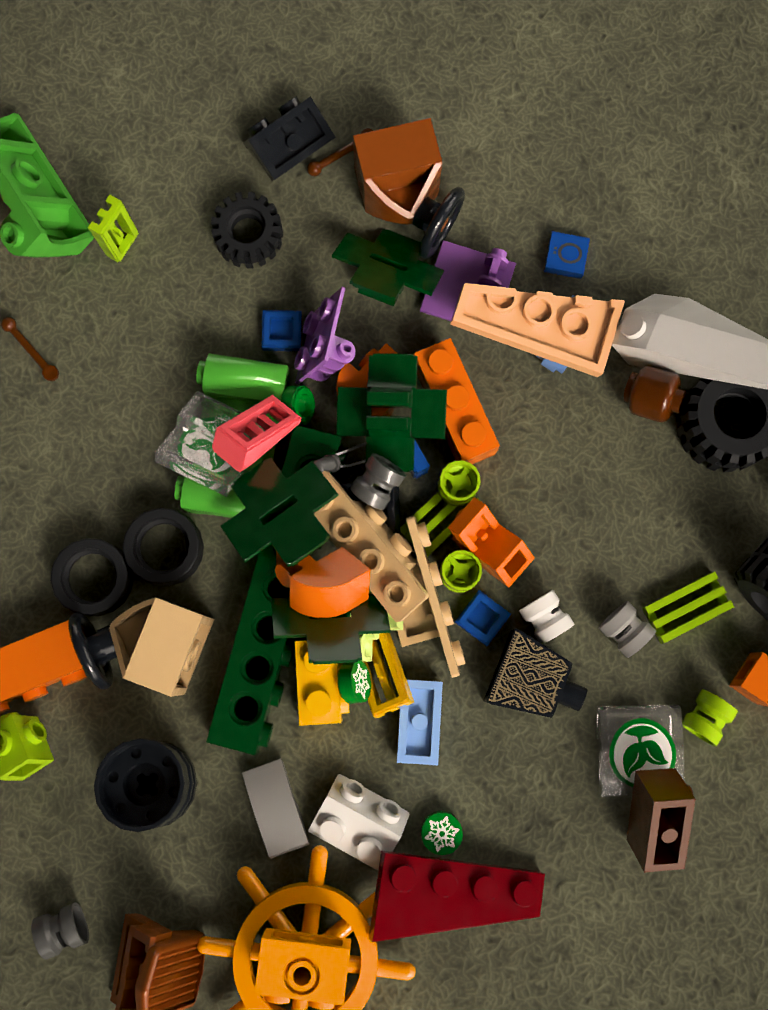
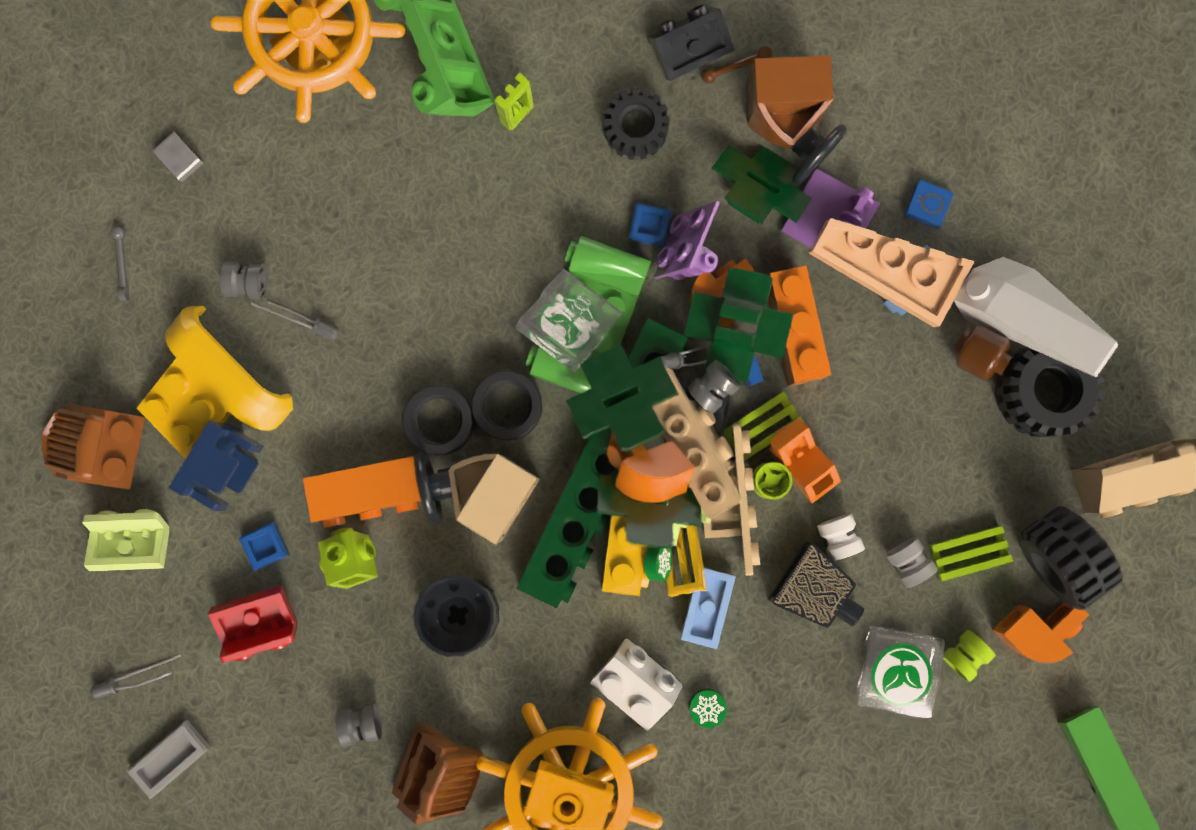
camera: 15 degrees right, 5 degrees up
(49, 371) = (430, 222): reddish brown hinge -> none
(242, 451) = (593, 331): coral slope -> none
(275, 808) = (565, 657): light grey slope -> none
(300, 401) = (652, 299): green tile -> none
(441, 895) = (702, 763): dark red wing -> none
(460, 476) = (791, 397): lime wheel -> none
(482, 618) = (782, 525): blue tile -> none
(660, 819) = (906, 736): reddish brown brick -> none

